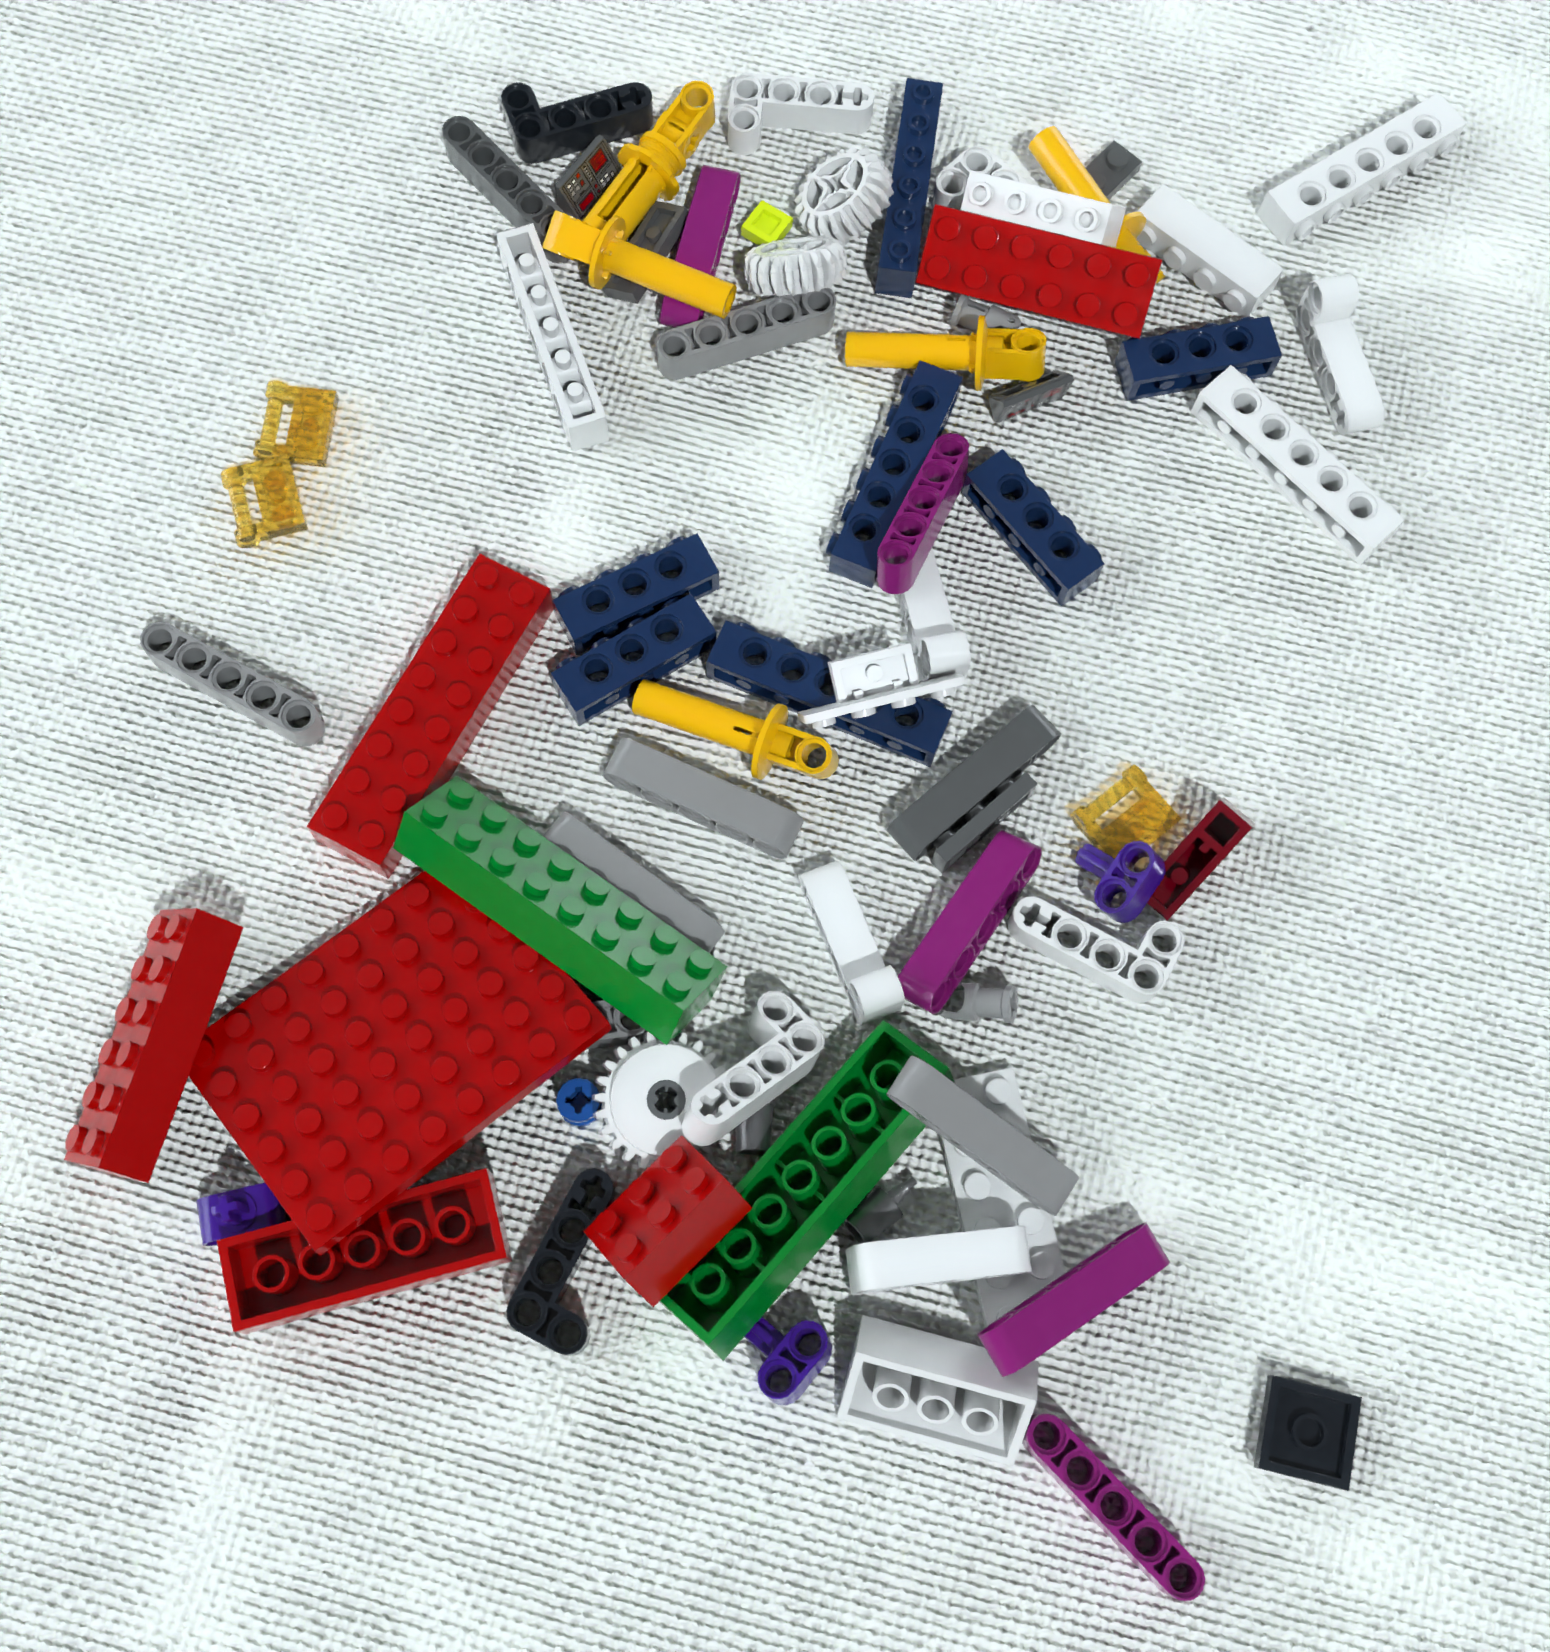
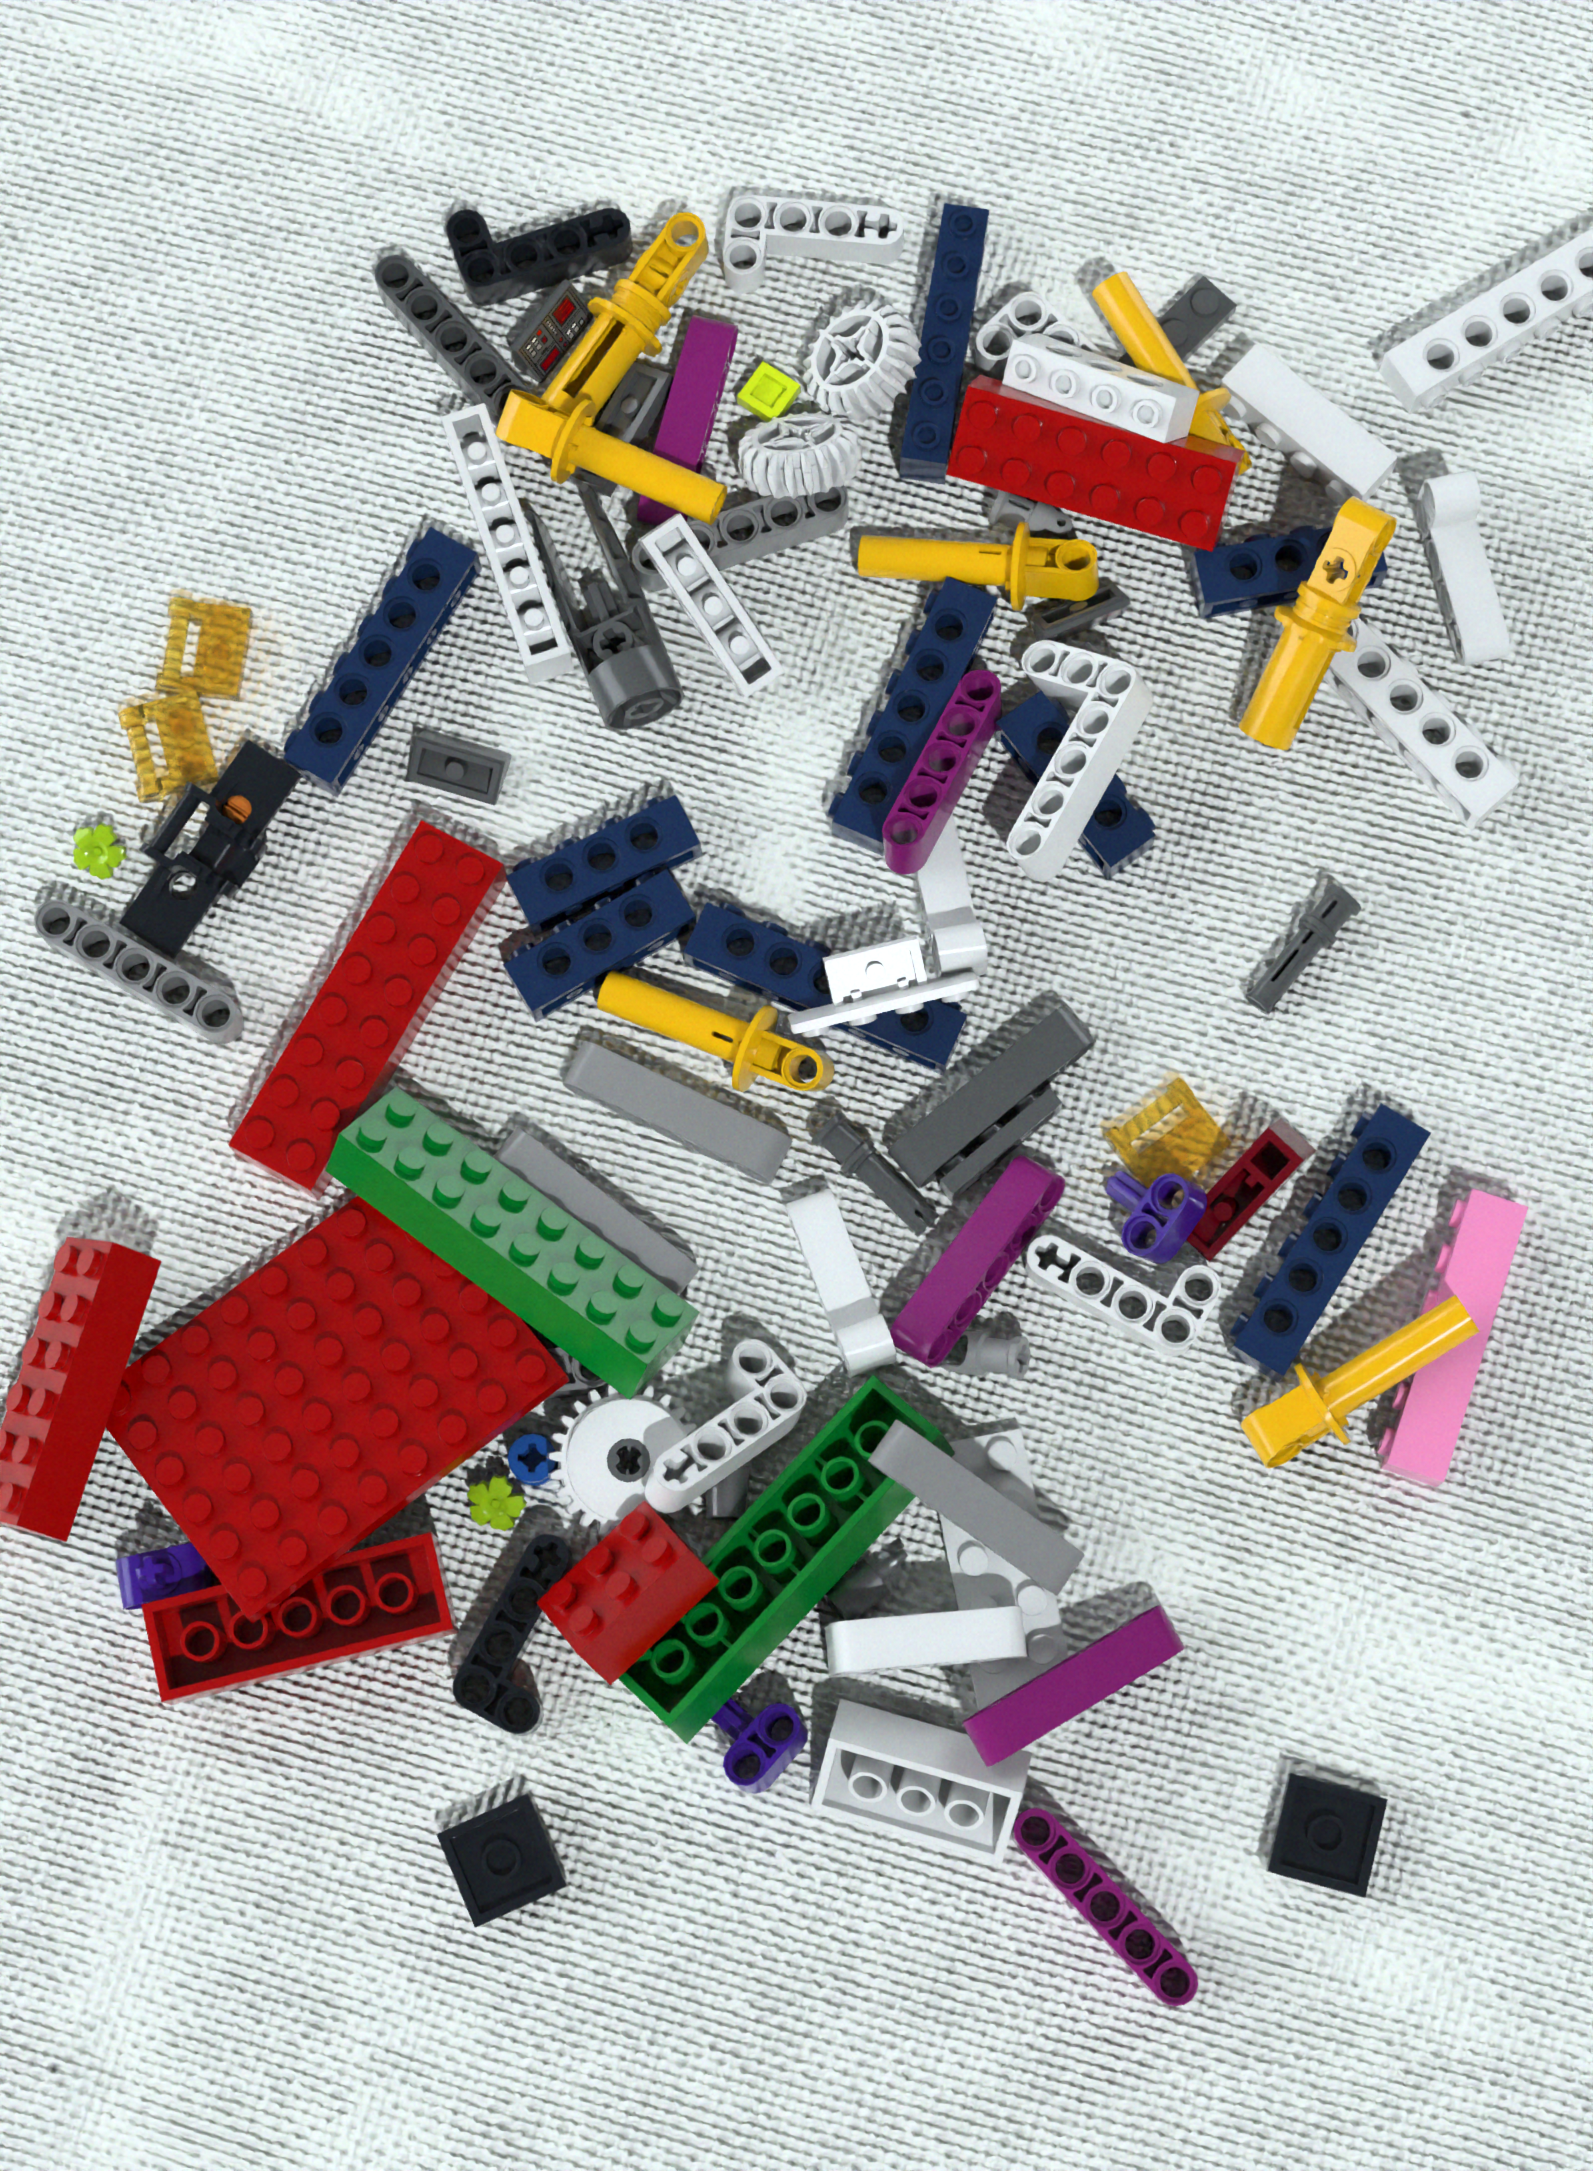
camera: 10 degrees right, 5 degrees up
(199, 586) = (96, 850): none -> lime plant
(308, 589) = (224, 855): none -> black piece
(427, 481) = (333, 764): none -> dark blue brick
(511, 517) = (458, 766): none -> dark grey slope
(545, 1141) = (495, 1503): none -> lime plant
(552, 1475) = (502, 1860): none -> black plate
(659, 441) = (640, 679): none -> dark grey piece
(724, 378) = (711, 605): none -> white brick
(862, 835) = (859, 1158): none -> dark grey pin
(1062, 461) = (1110, 714): none -> white beam
(1234, 388) = (1317, 624): none -> yellow piece
(1240, 645) = (1315, 932): none -> dark grey pin
(1279, 1040) = (1321, 1404): none -> yellow piece
(1325, 818) = (1400, 1144): none -> dark blue brick
(1384, 983) = (1438, 1394): none -> bright pink brick

